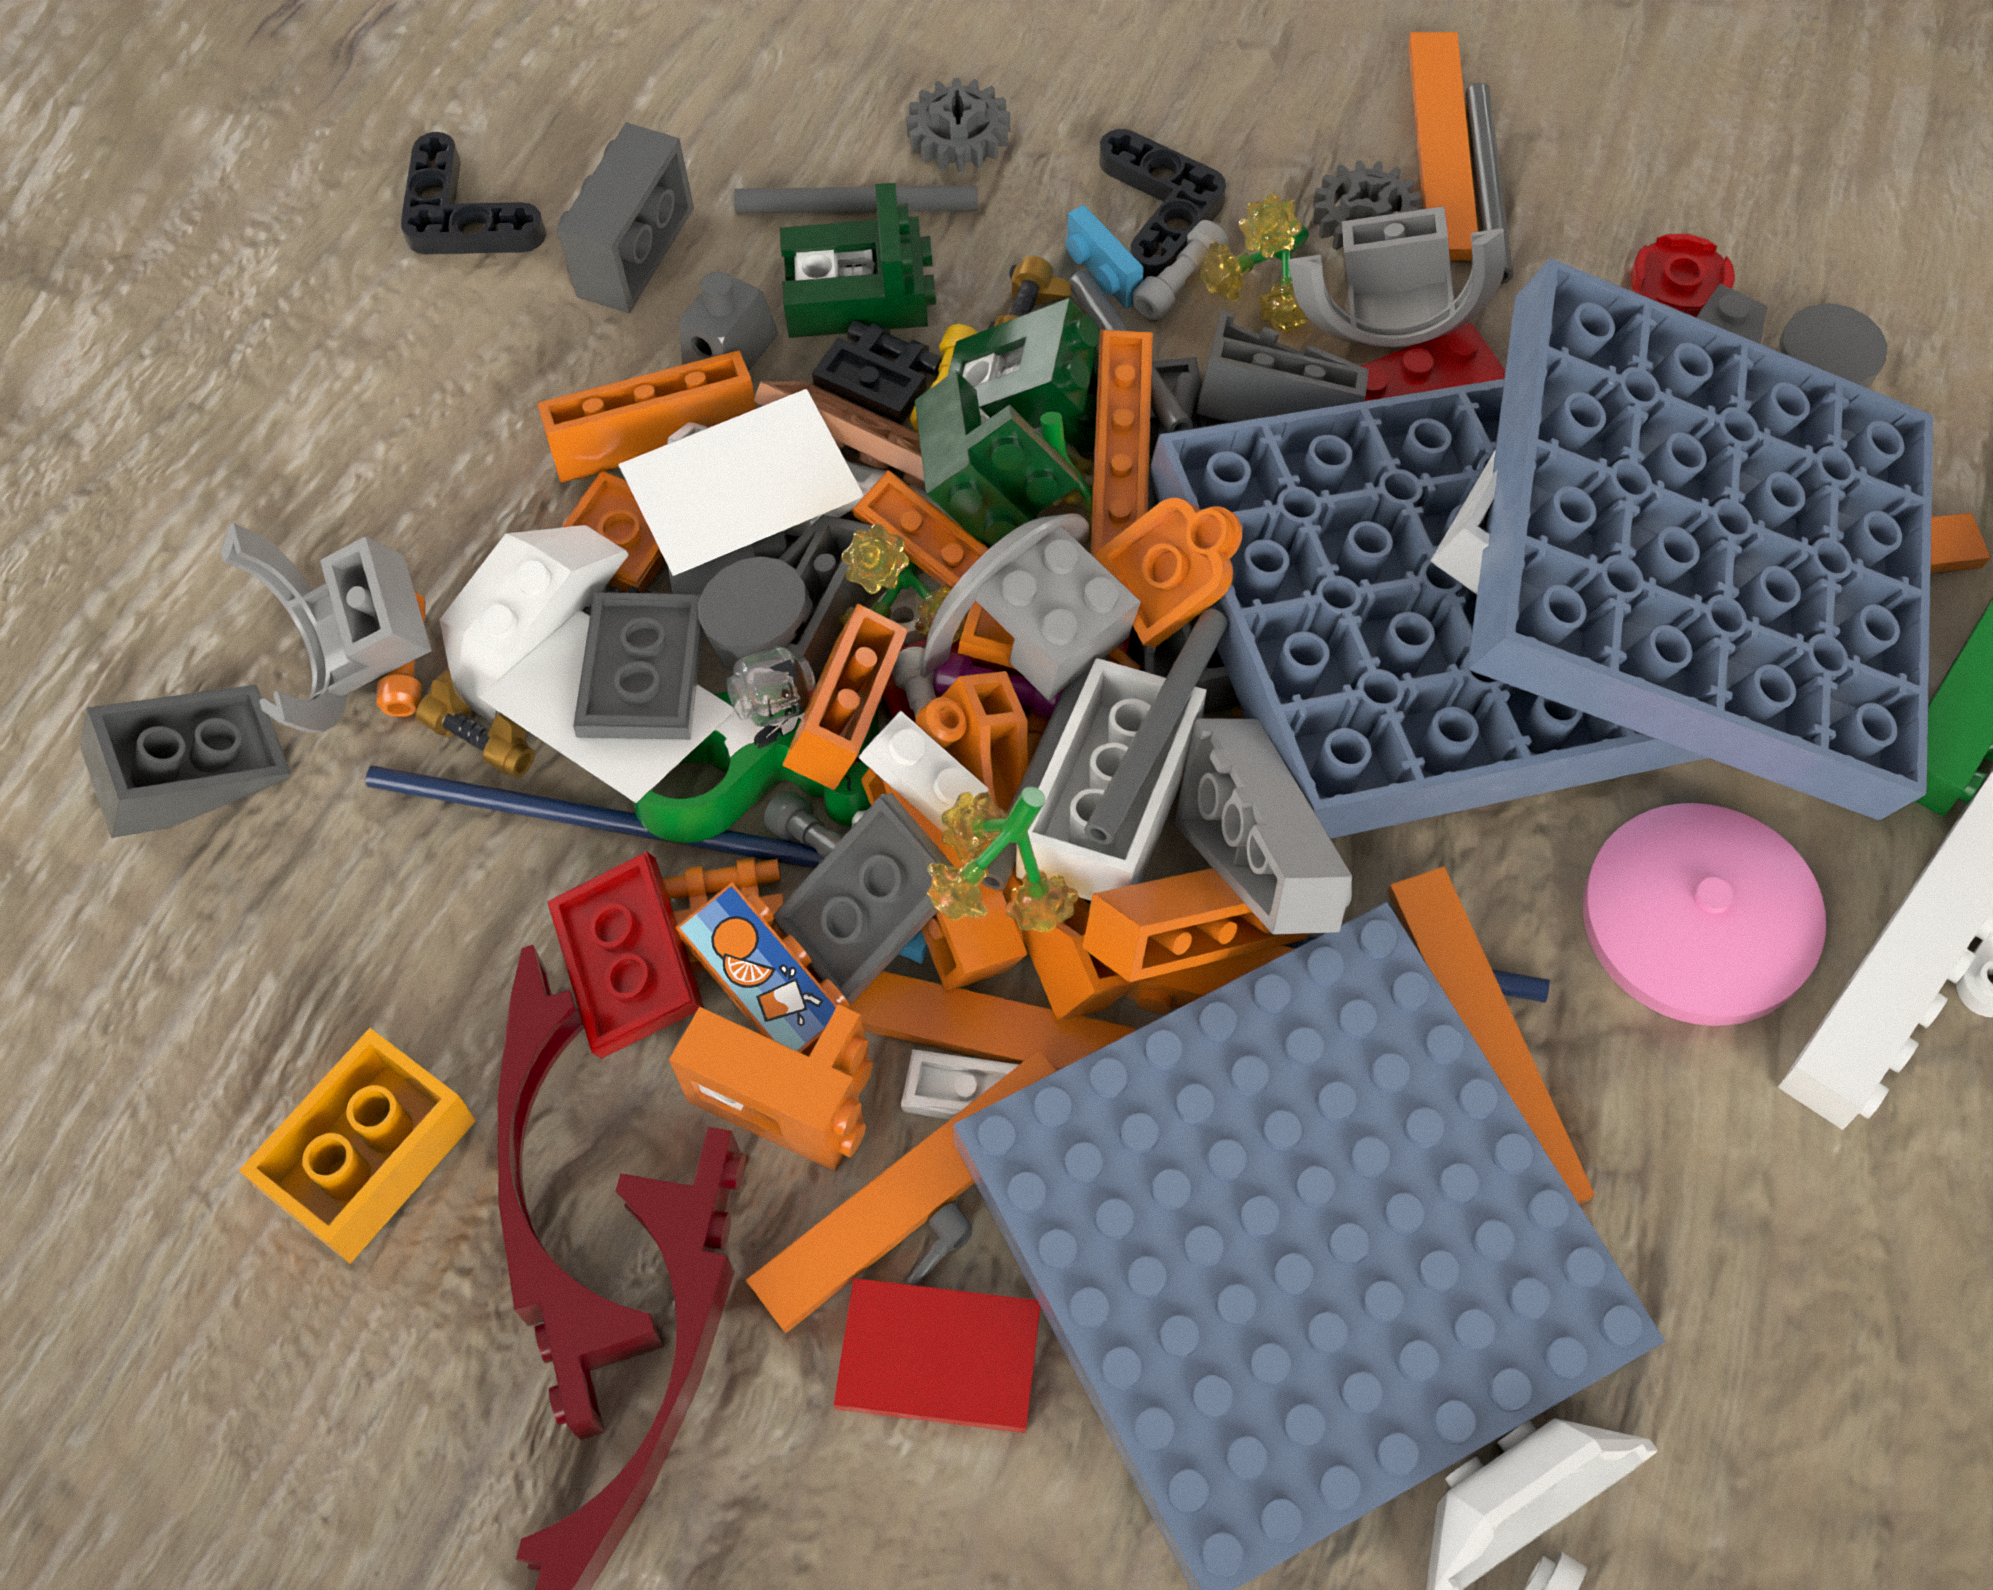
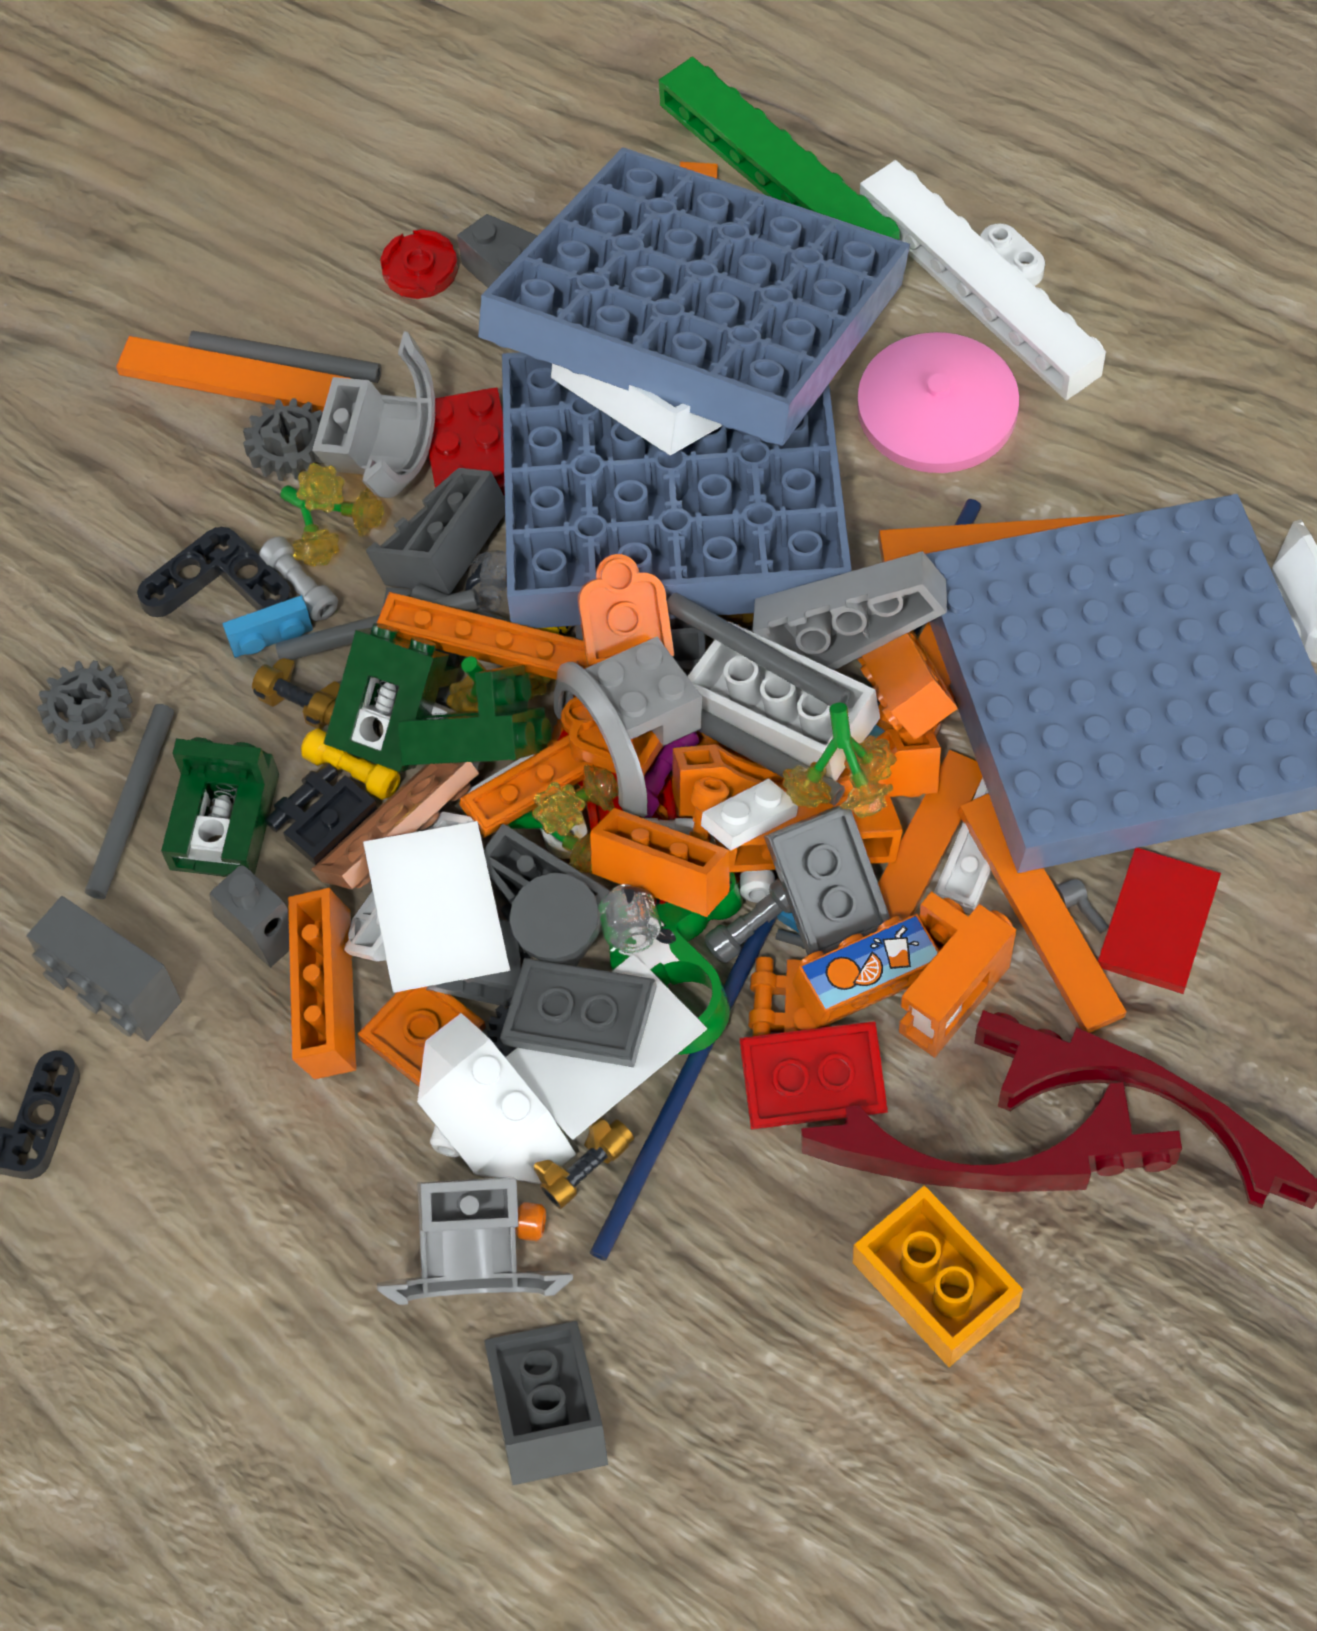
camera: 75 degrees left, 0 degrees up
(1836, 342) = (516, 194): dark grey tile -> none

